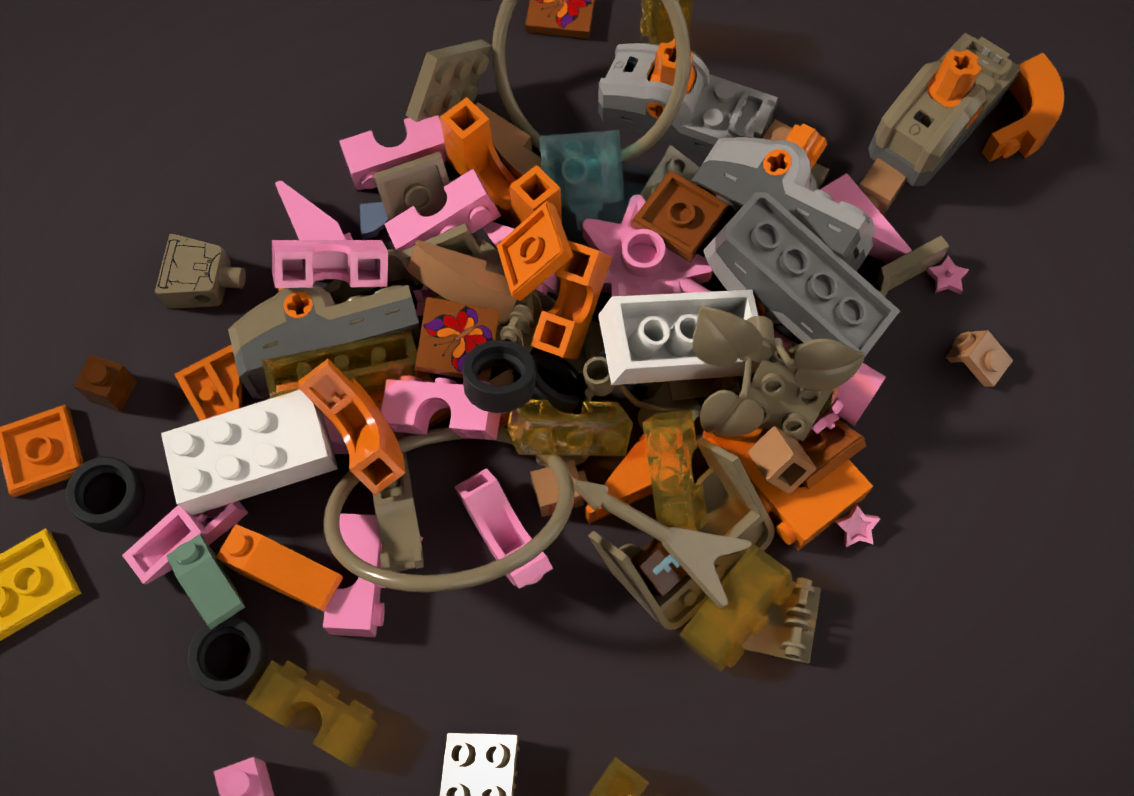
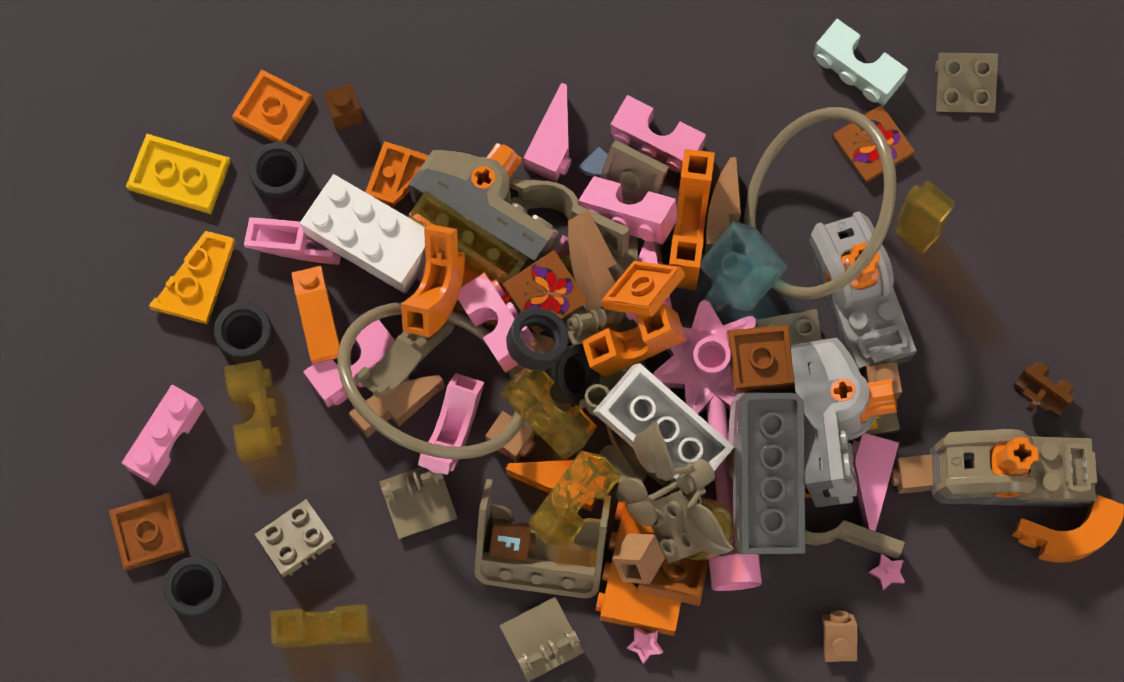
camera: 50 degrees right, 5 degrees up
(133, 660) = (198, 281): none -> light orange wing
(195, 274) = (460, 91): dark tan torso -> none
(205, 581) = (273, 279): sand green slope -> none
(306, 261) = (515, 155): bright pink arch -> none
(439, 559) = (401, 402): none -> medium nougat slope
(448, 78) = (728, 127): dark tan plate -> none
(544, 625) = (417, 501): none -> dark tan hinge
(691, 549) = (529, 547): dark tan piece -> none
(751, 592) = (522, 608): clear yellow brick -> none
(828, 417) = (696, 566): bright pink piece -> none
(887, 42) = (1042, 391): none -> reddish brown hips

